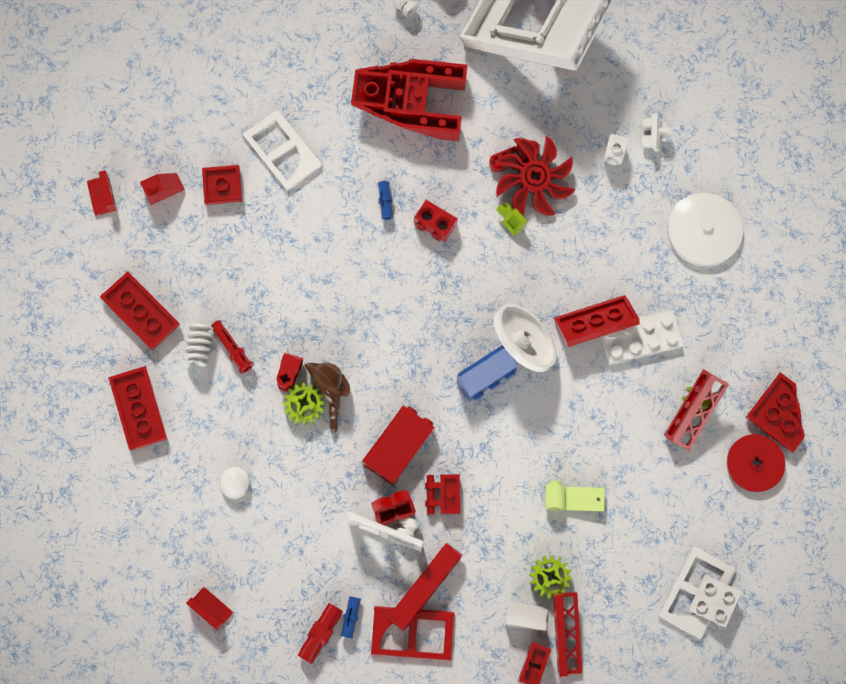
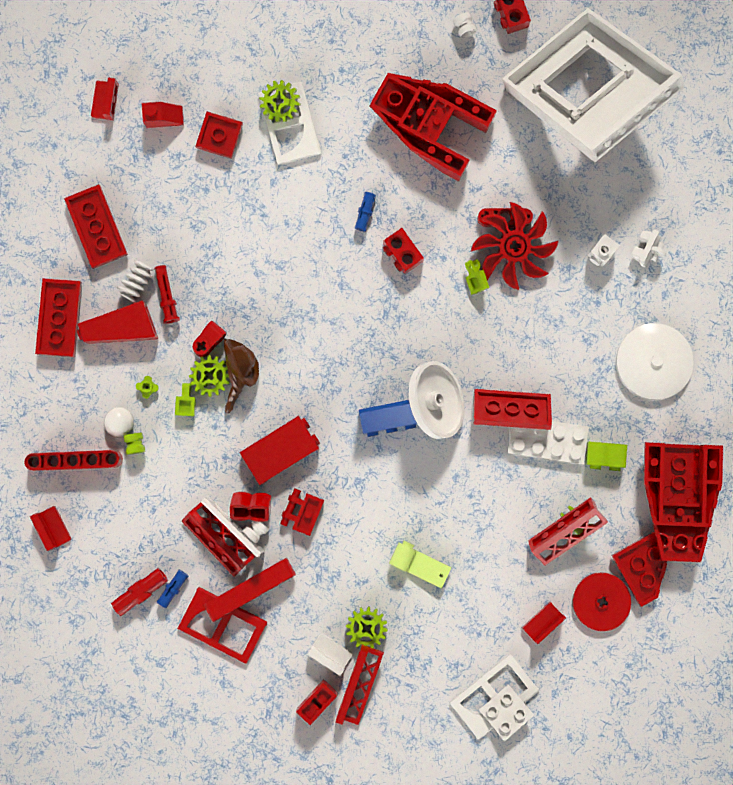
camera: 25 degrees right, 10 degrees up
(195, 534) = (64, 460): none -> red beam
(200, 391) = (120, 325): none -> red slope
(242, 440) = (152, 387): none -> lime plate
(258, 495) = (134, 443): none -> lime wheel
(275, 130) = (280, 93): none -> lime gear
(291, 438) = (185, 405): none -> lime plate
(372, 554) = (215, 541): none -> red fence
(699, 328) = (606, 454): none -> lime brick
(711, 504) = (543, 622): none -> red panel
(785, 335) = (682, 496): none -> red wedge

